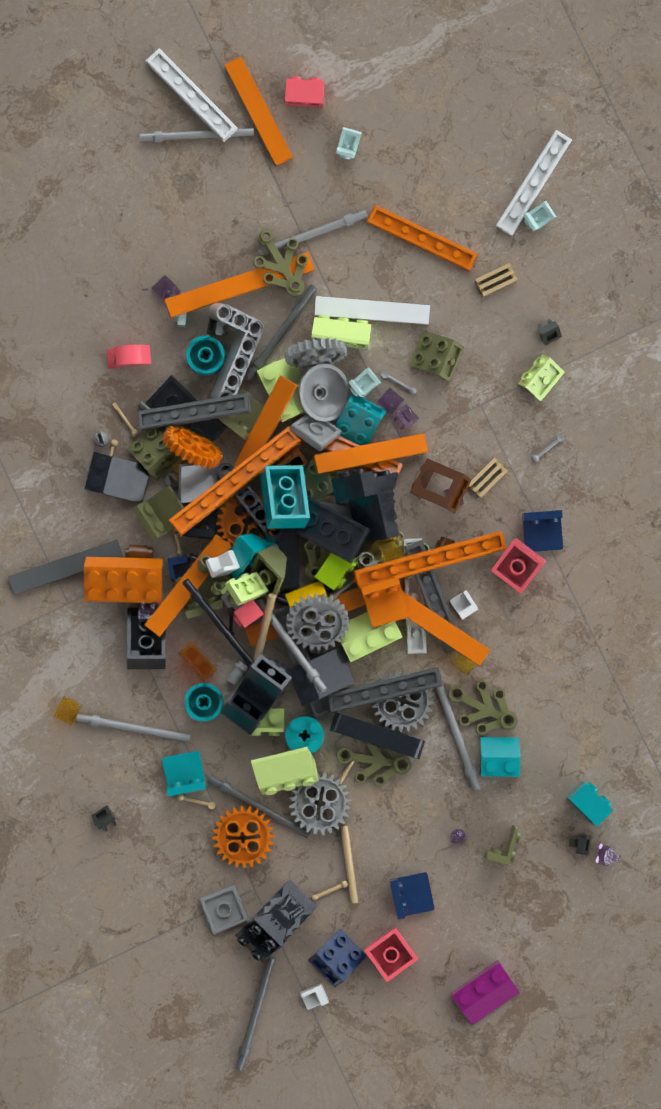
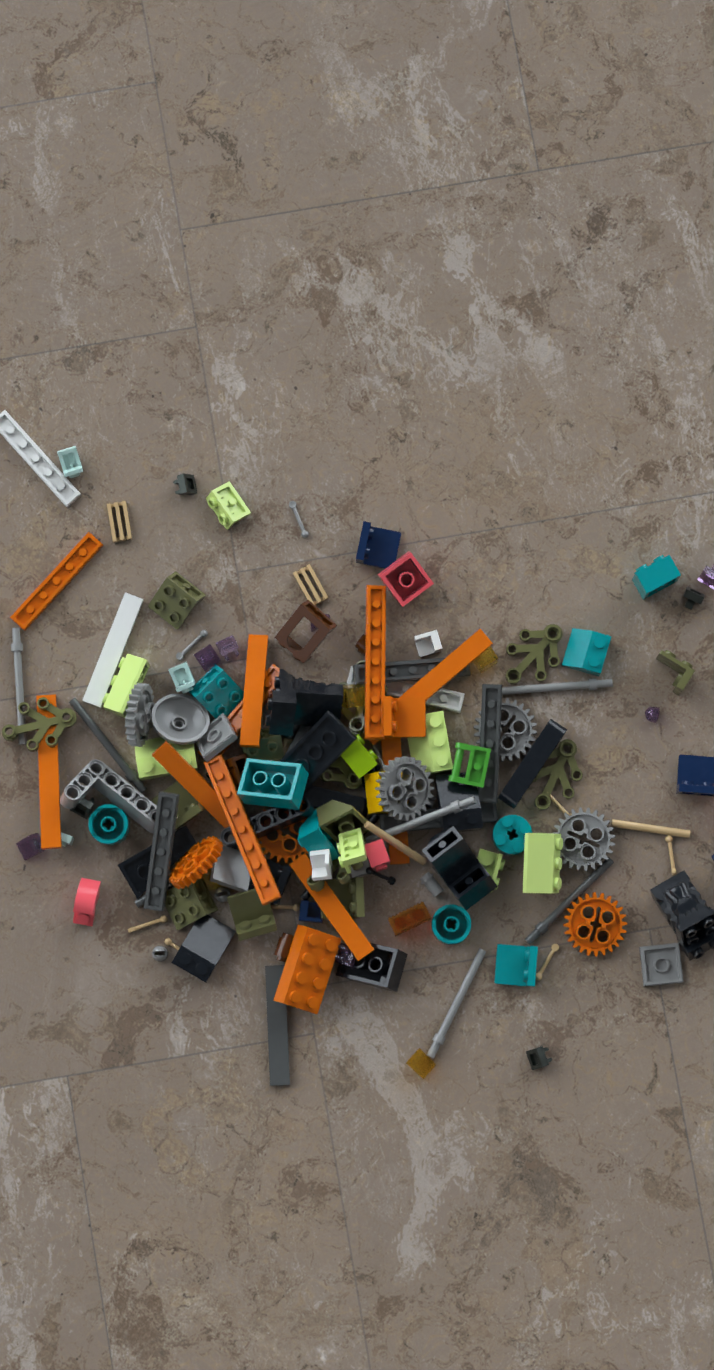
camera: 75 degrees left, 5 degrees down
(197, 596) = (345, 899): black bar -> none
(358, 683) = (476, 765): none -> bright green plate

